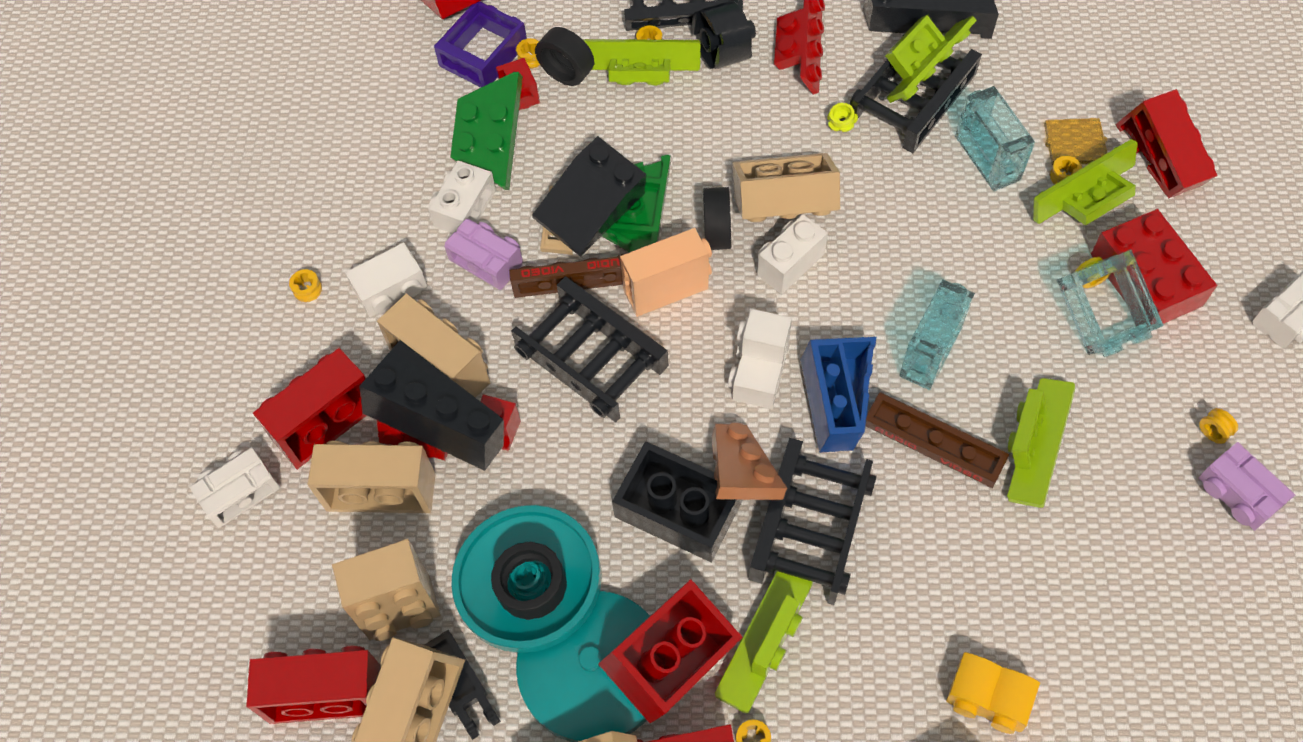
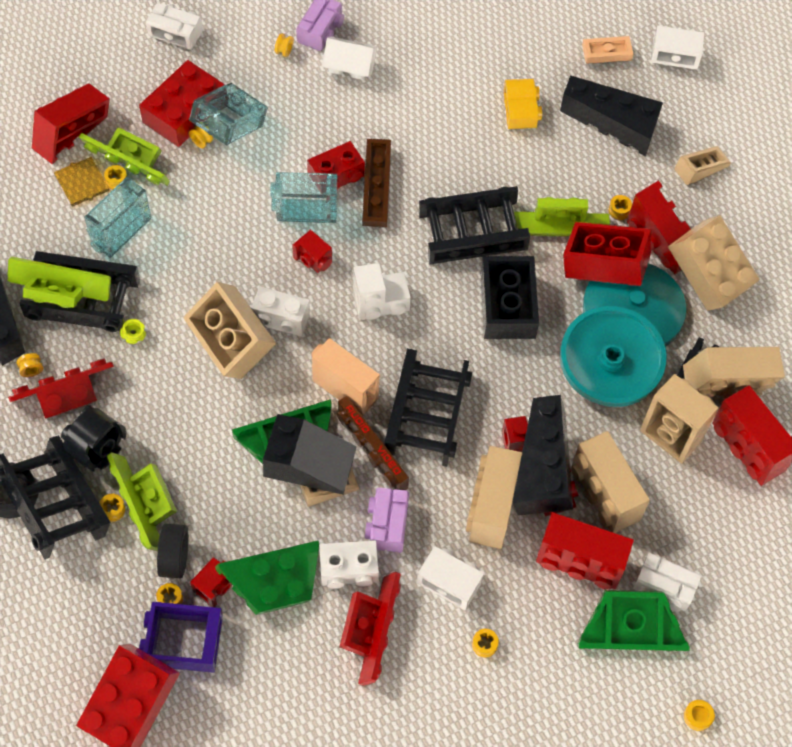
camera: 125 degrees left, 0 degrees up
(93, 445) = (699, 715): none -> yellow tile
(215, 427) = (633, 623): none -> green wing
(392, 188) = (368, 626): none -> red bracket
(516, 556) = (628, 324): black tyre -> none
(717, 217) = (279, 366): black tyre -> none
(743, 466) = (467, 263): nougat wing -> none
(837, 389) = (378, 238): blue wedge -> none
(845, 21) = (29, 365): none -> yellow bush
(859, 319) = (313, 251): none -> red brick
(976, 398) = (341, 160): none -> red brick
(1038, 440) = (345, 128): lime bracket -> none
(1163, 491) = (349, 57): none -> white brick

